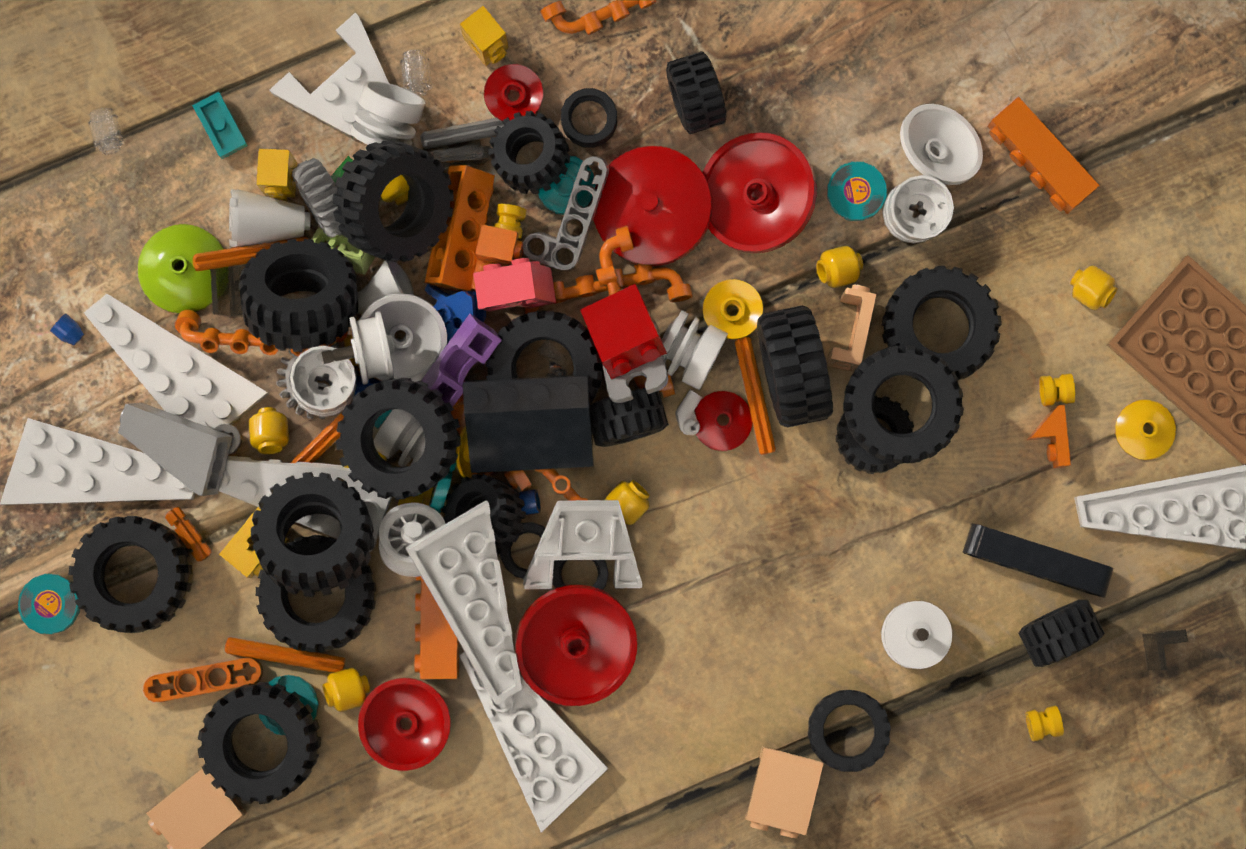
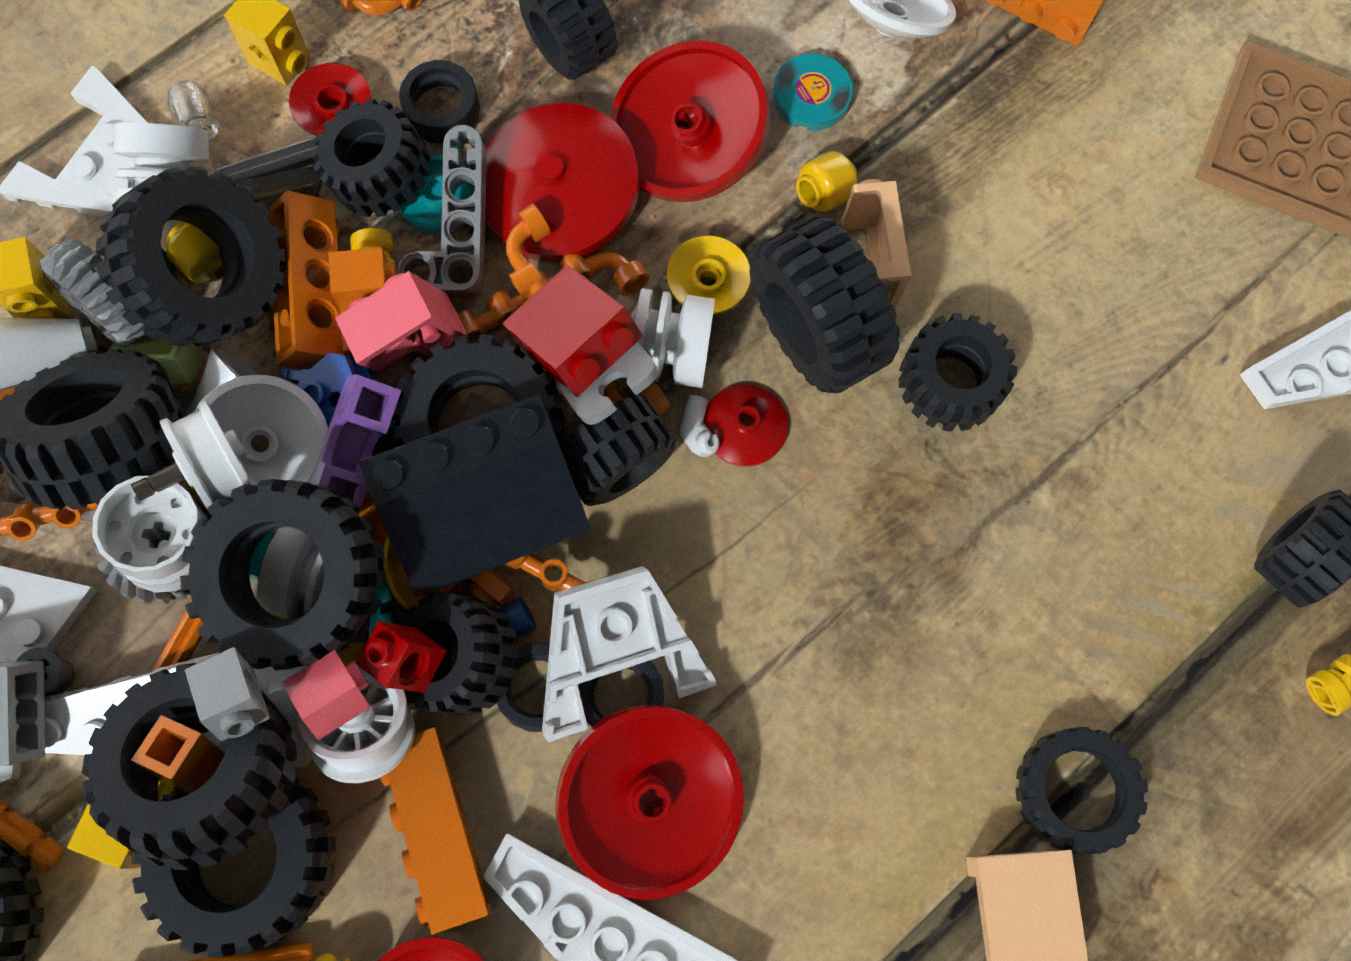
camera: 25 degrees left, 10 degrees down
(268, 431) = (105, 640): yellow head -> none
(306, 527) = (178, 755): none -> orange brick
(349, 505) = (227, 695): none -> light grey brick
(403, 519) = (327, 694): none -> coral brick
(448, 505) = (401, 657): none -> red brick
(467, 584) = (458, 764): white wing -> none
(632, 499) = (663, 563): yellow head -> none
(755, 395) = (778, 377): orange axle -> none
(916, 634) = (1121, 620): white wheel -> none
(933, 201) = (901, 78): white wheel -> none
(945, 411) = (1028, 260): black tyre -> none
(963, 291) = (1007, 166): black tyre -> none
(1038, 560) = (1233, 467): black beam -> none
(1055, 428) = (1184, 295): orange slope -> none
(1057, 389) = (1156, 248): yellow wheel -> none
(1093, 287) = (1152, 112): yellow head -> none
(1130, 429) = (1277, 275): yellow dish -> none

